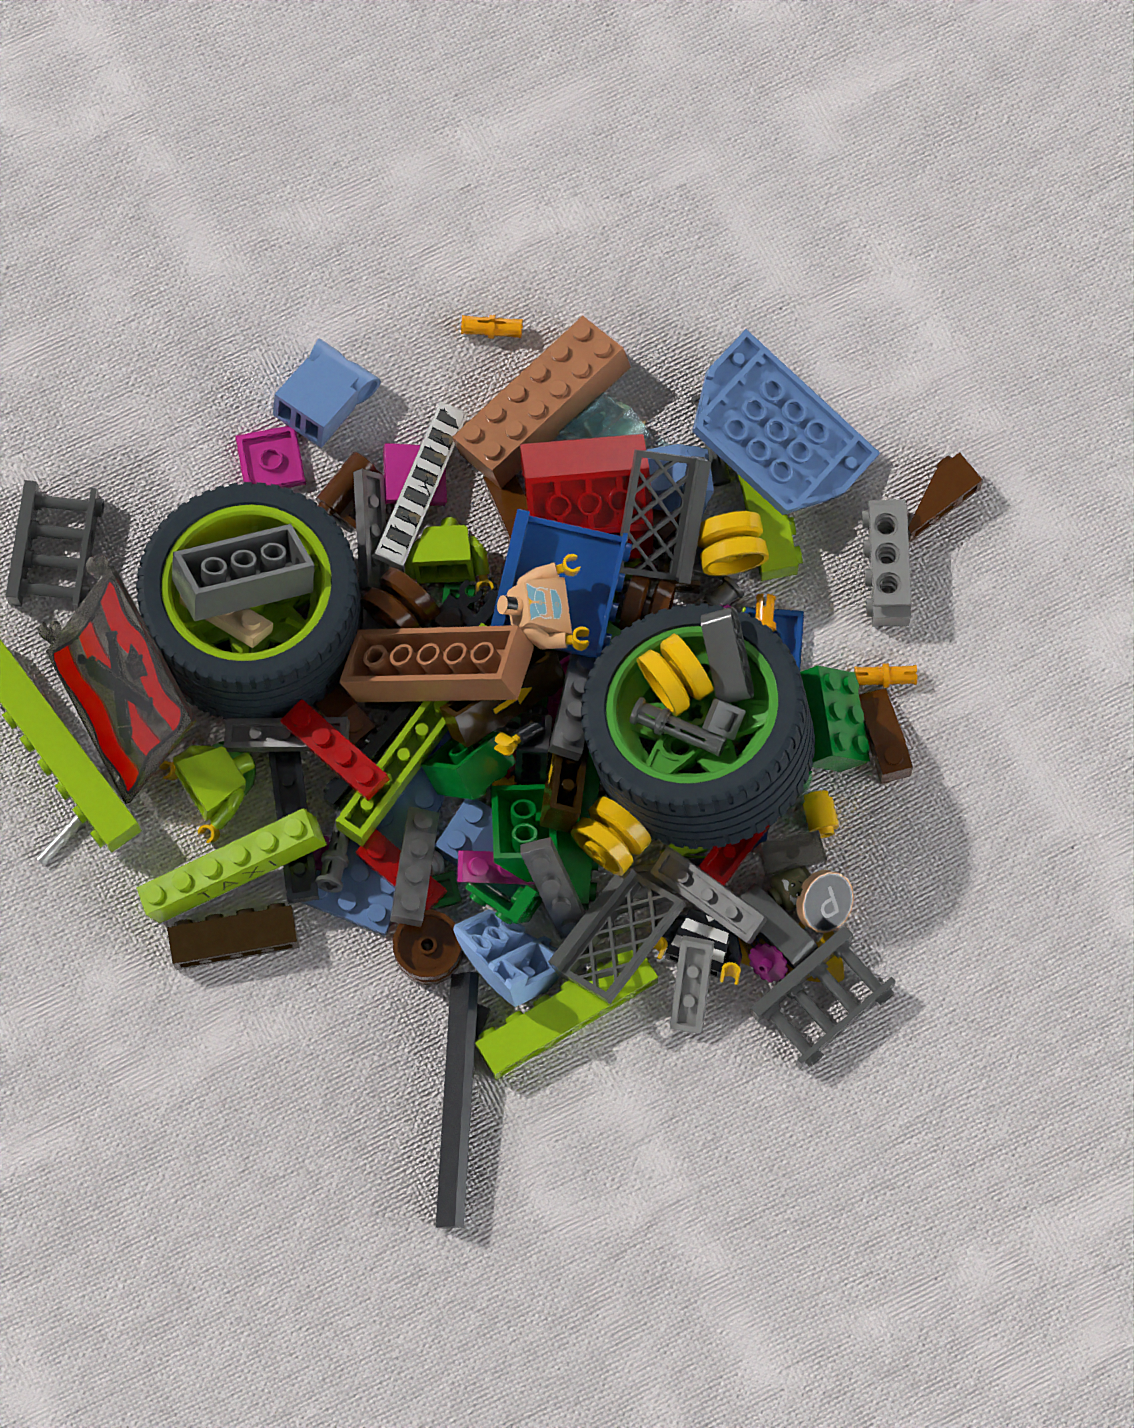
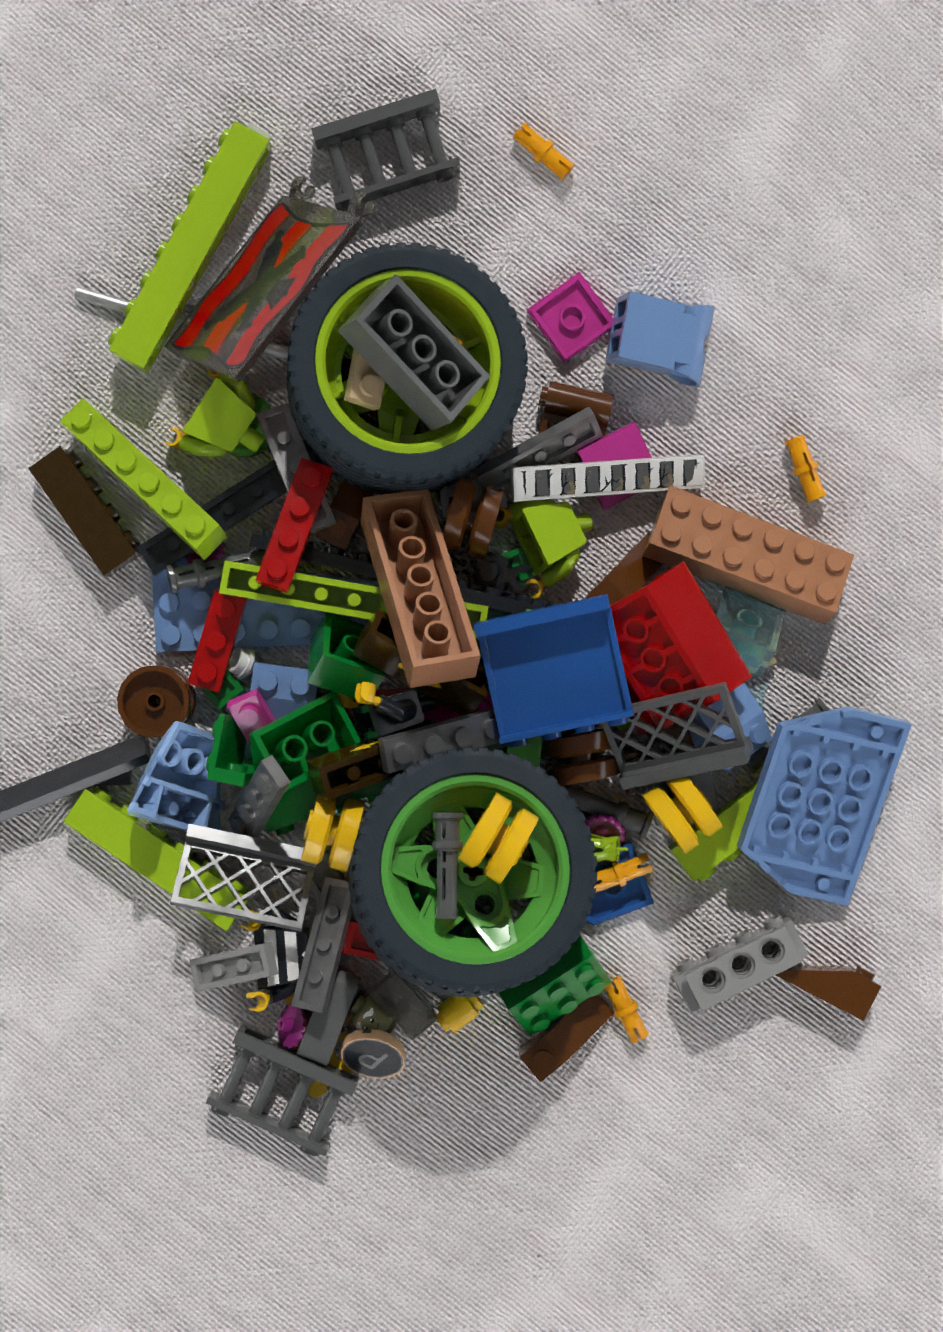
camera: 65 degrees right, 15 degrees up
(119, 420) = (543, 151): none -> light orange pin
(414, 866) = (222, 654): flat silver plate -> none
(542, 608) = (515, 666): light nougat torso -> none
(724, 719) = (475, 906): dark grey plate -> none
(727, 655) = (541, 881): dark grey beam -> none

